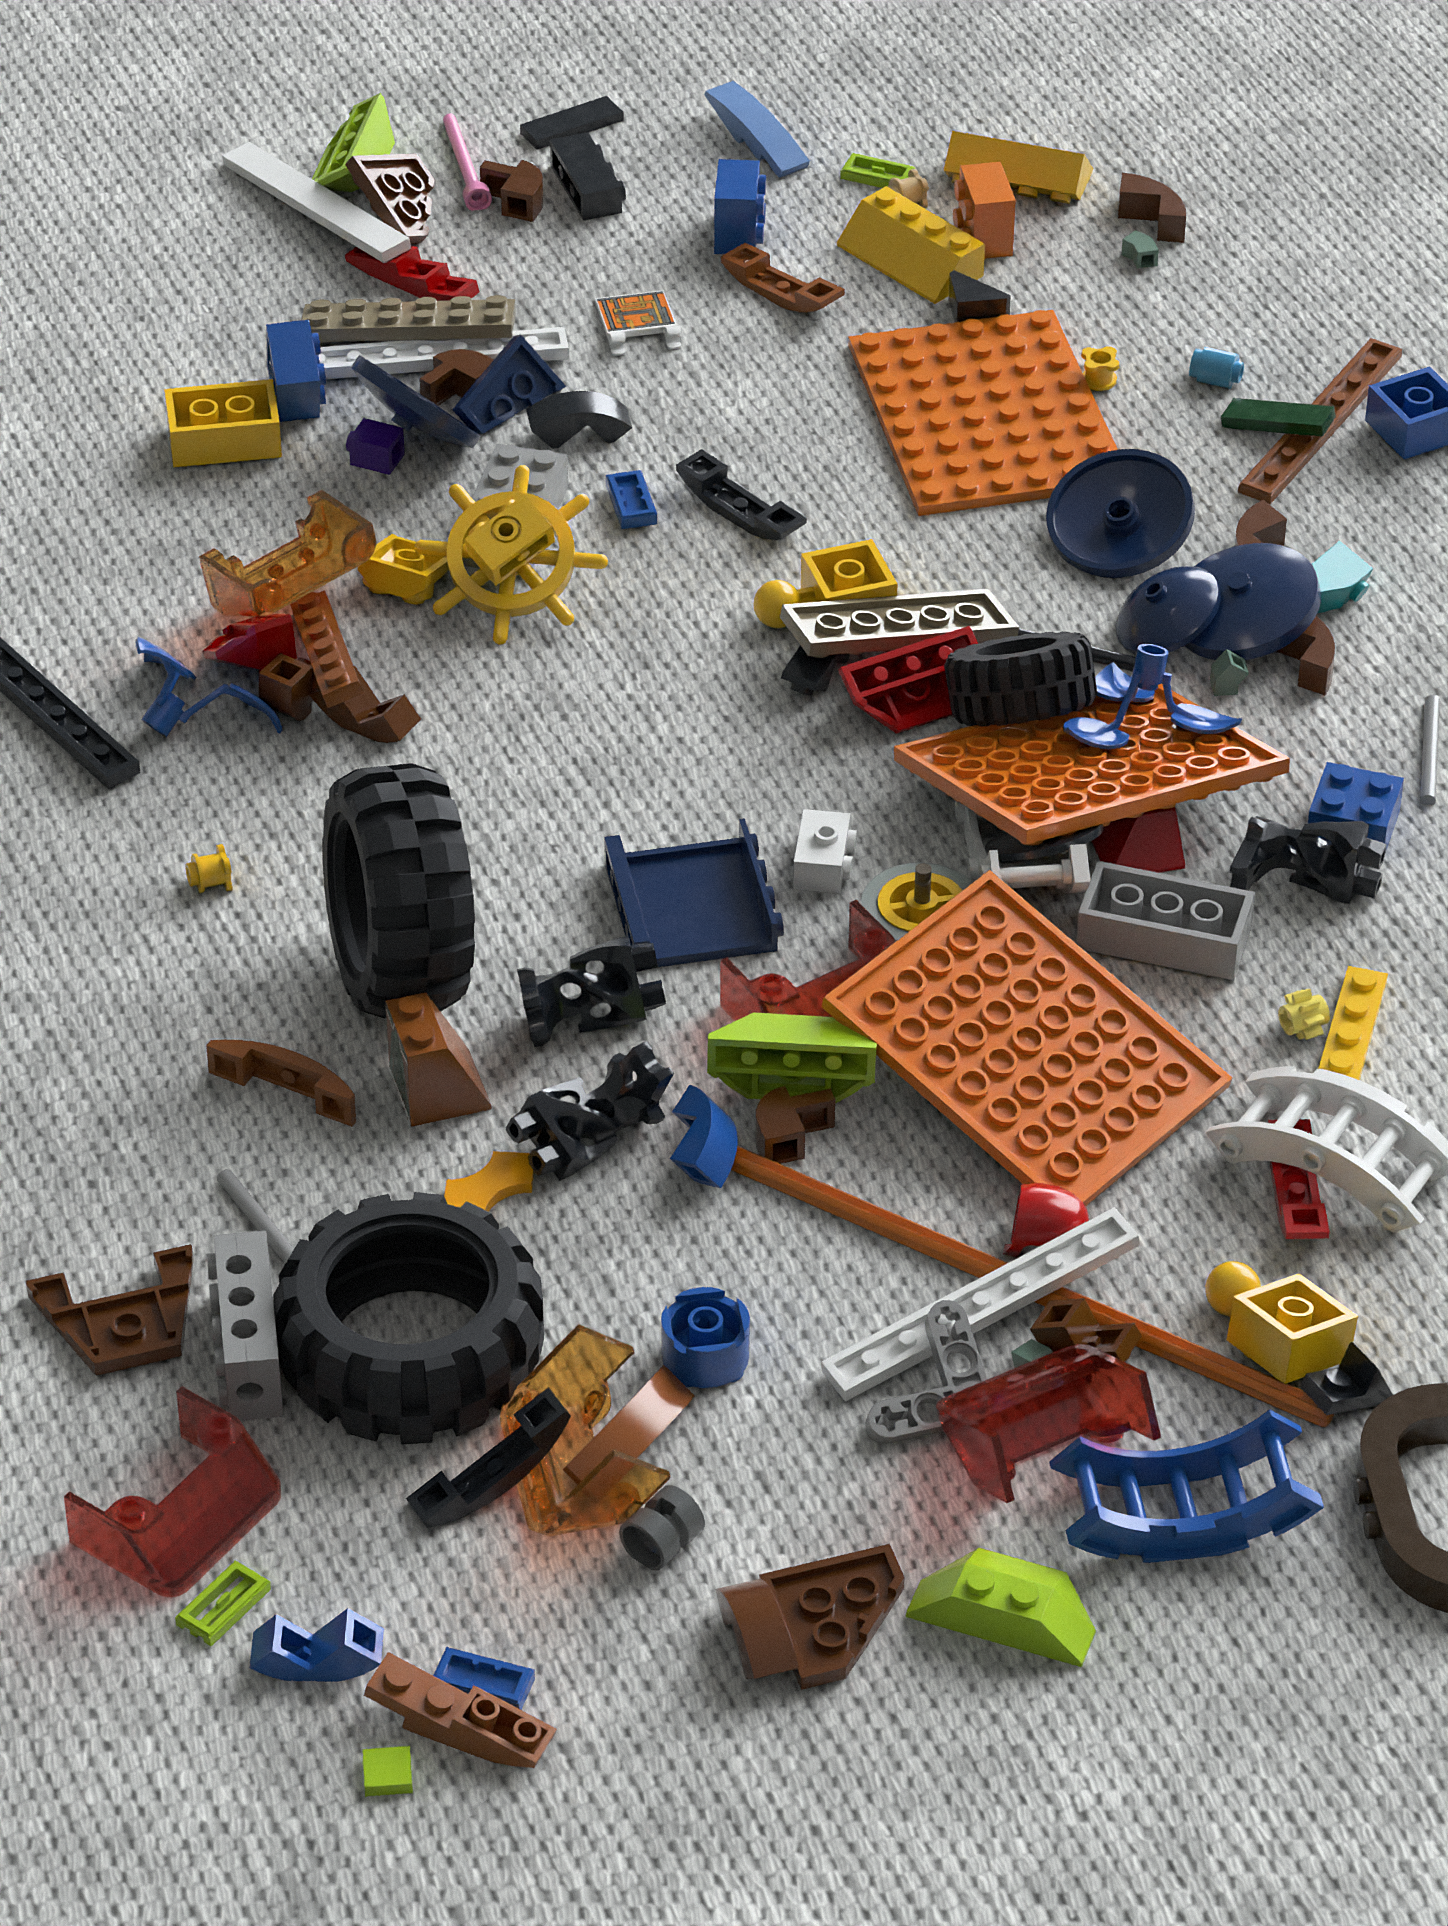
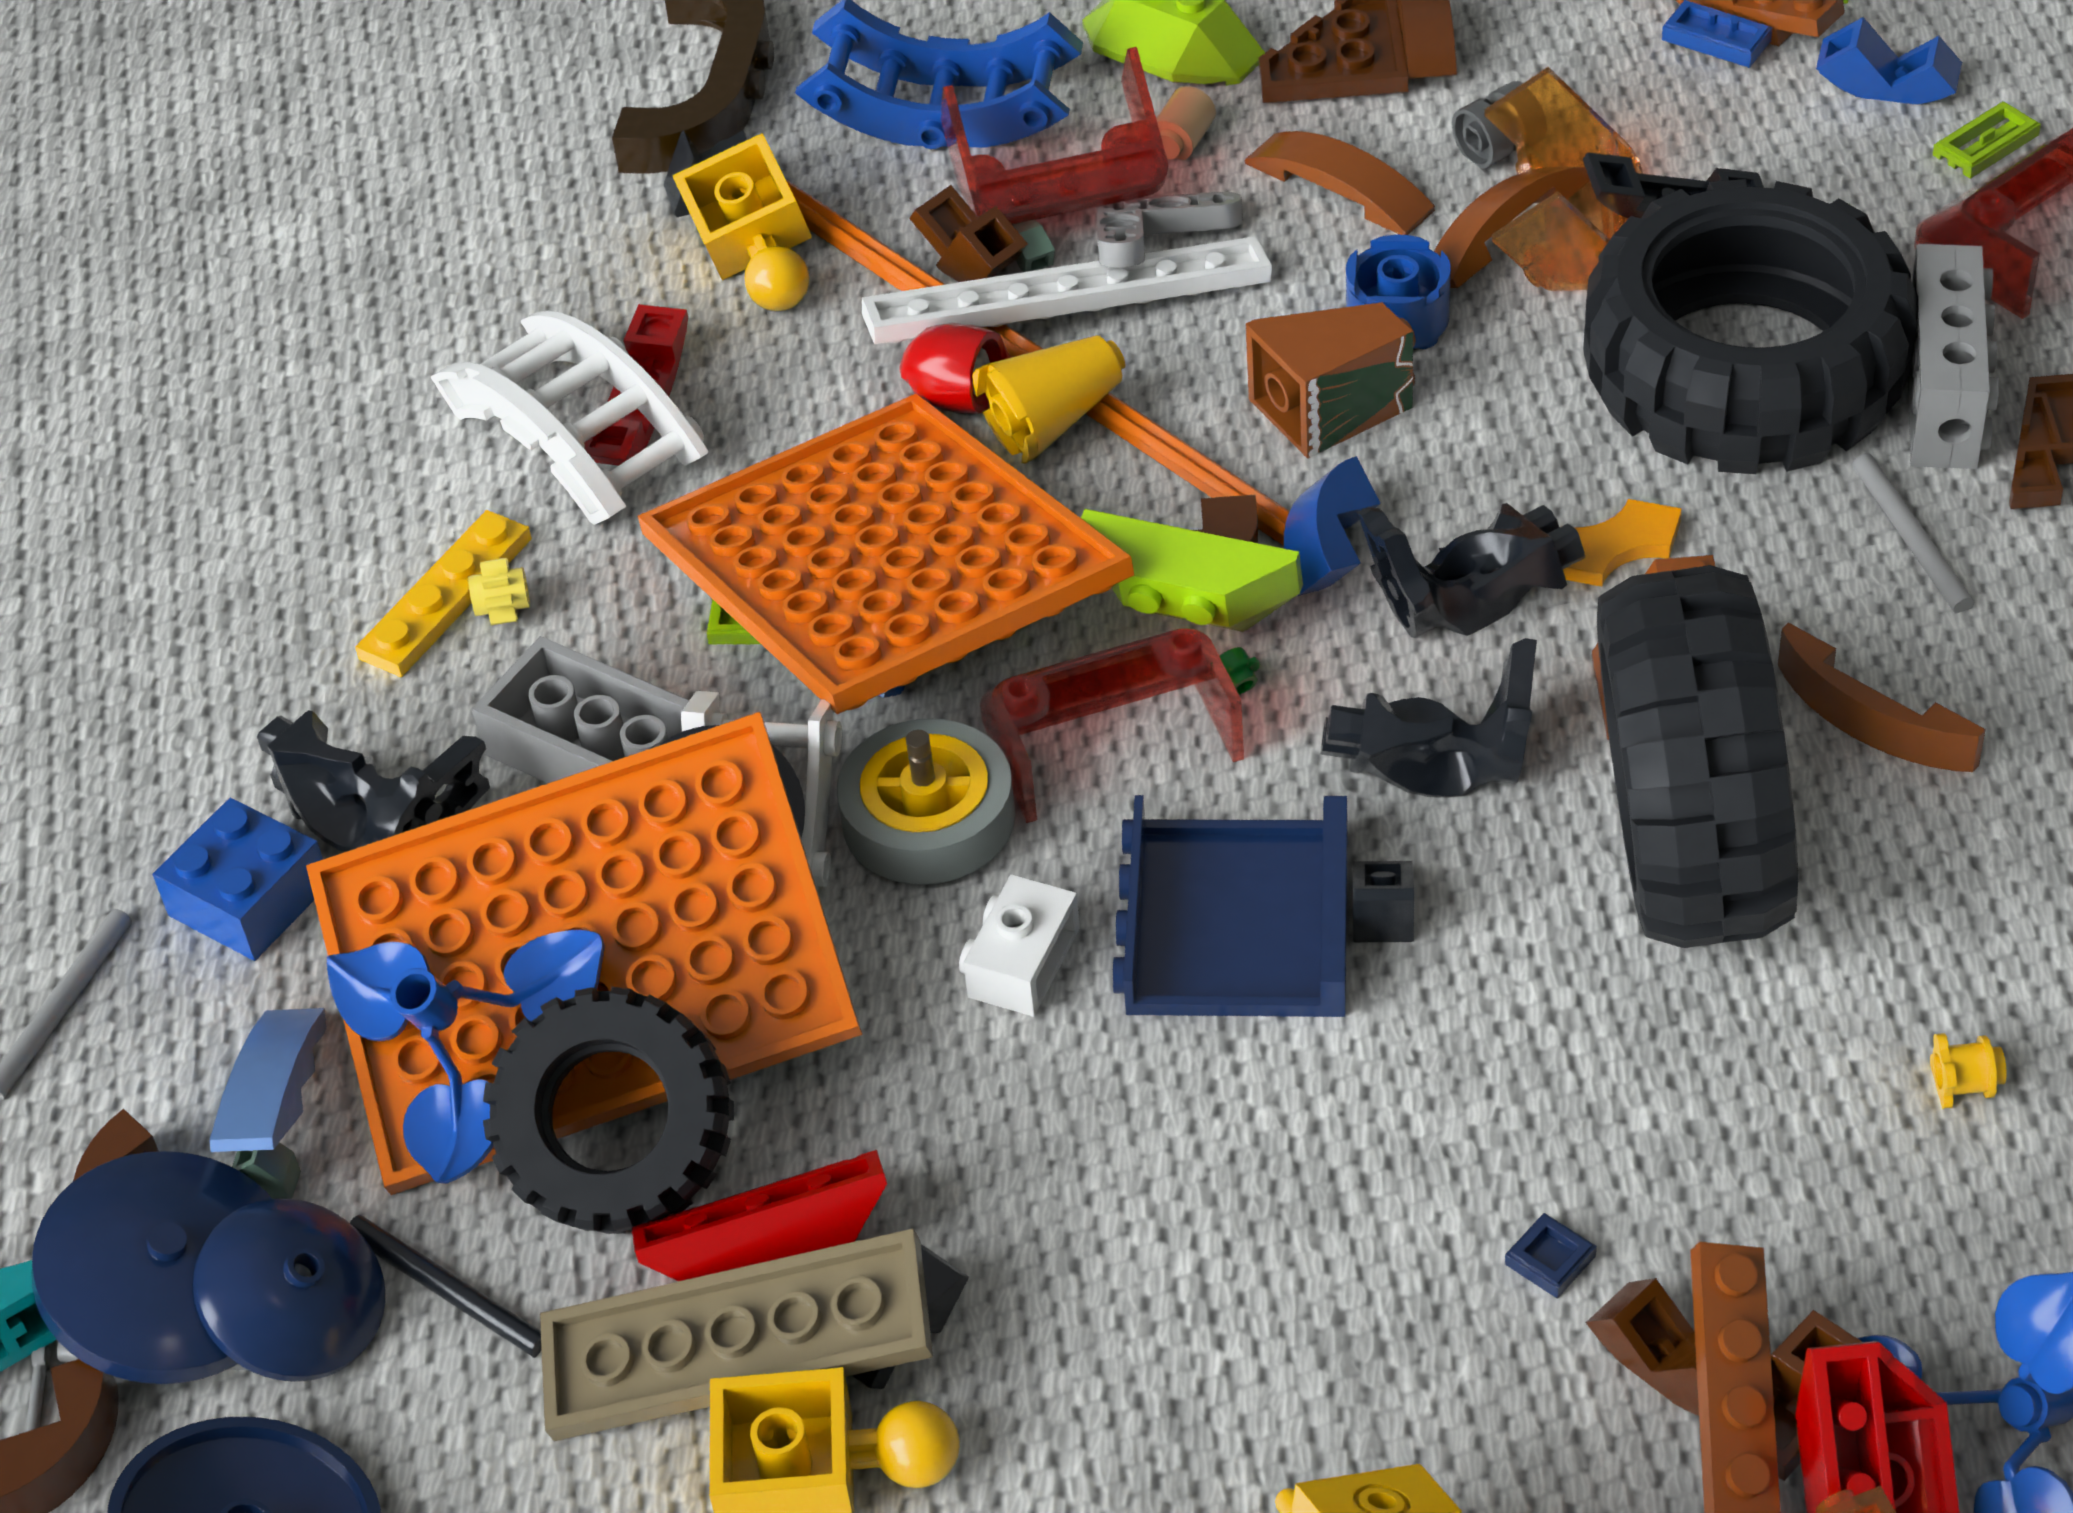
camera: 160 degrees left, 5 degrees up
(448, 756) = (1550, 1255): none -> dark blue tile
(595, 902) = (1383, 901): none -> black slope
(740, 1240) = (1330, 372): none -> dark orange slope
(797, 1470) = (1348, 171): none -> dark orange slope
(951, 1501) = (1185, 121): none -> tan brick
(961, 1191) = (1046, 391): none -> yellow cone
(1247, 684) = (267, 1081): none -> medium blue slope

